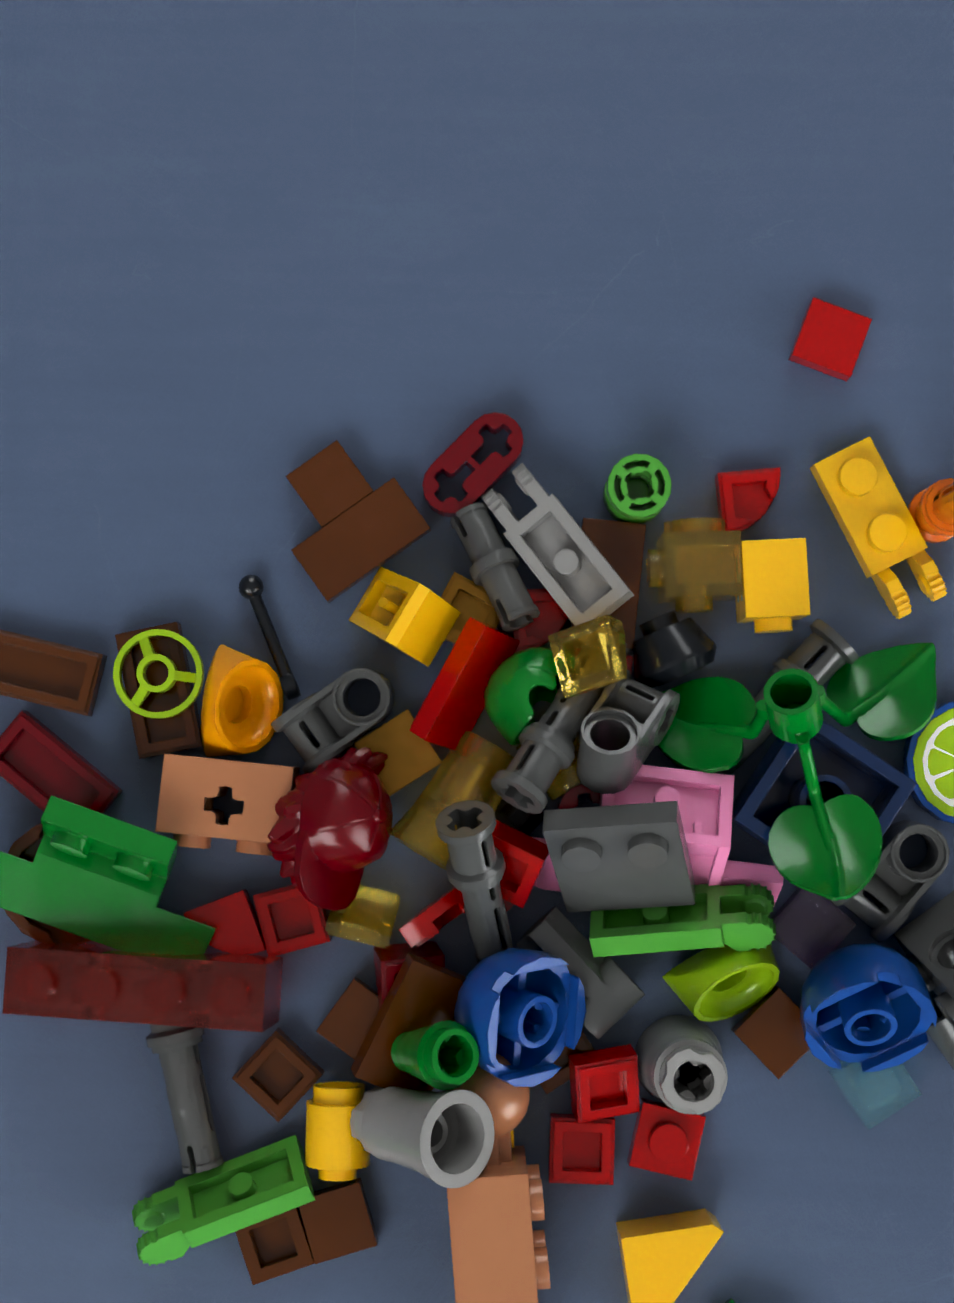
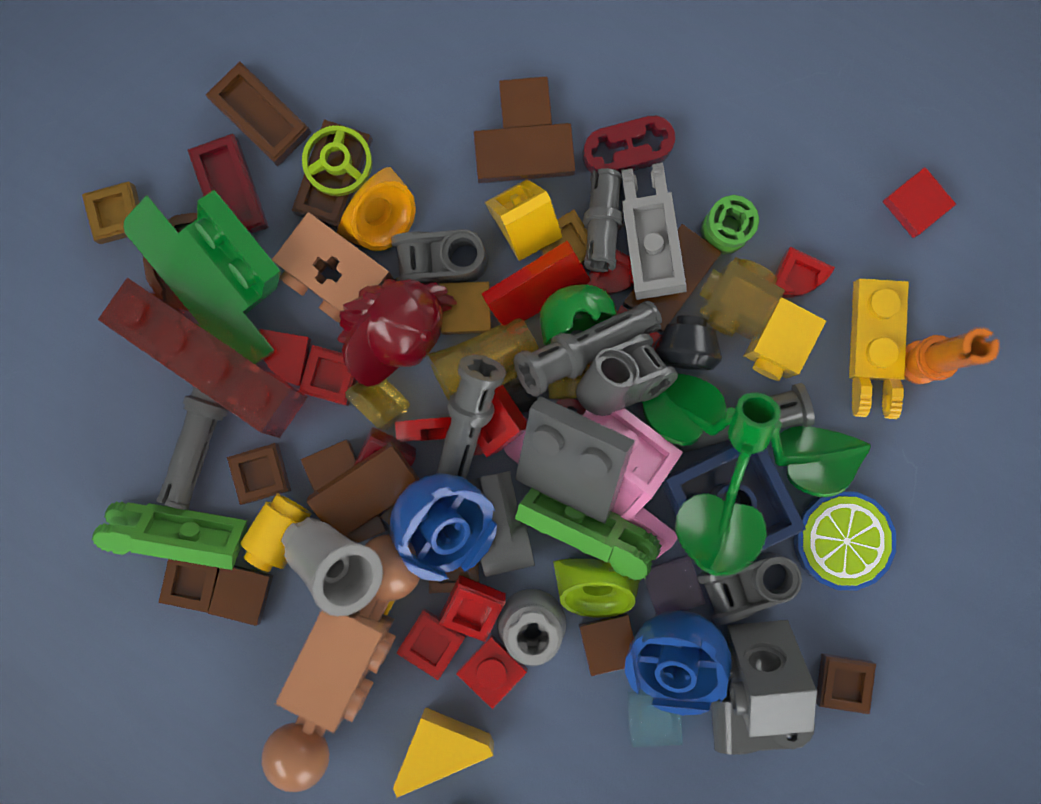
camera: 30 degrees right, 0 degrees up
(252, 588) = (432, 143): black hinge -> none
(437, 1054) = (370, 517): green cone -> none
(589, 655) = (633, 310): clear yellow slope -> none

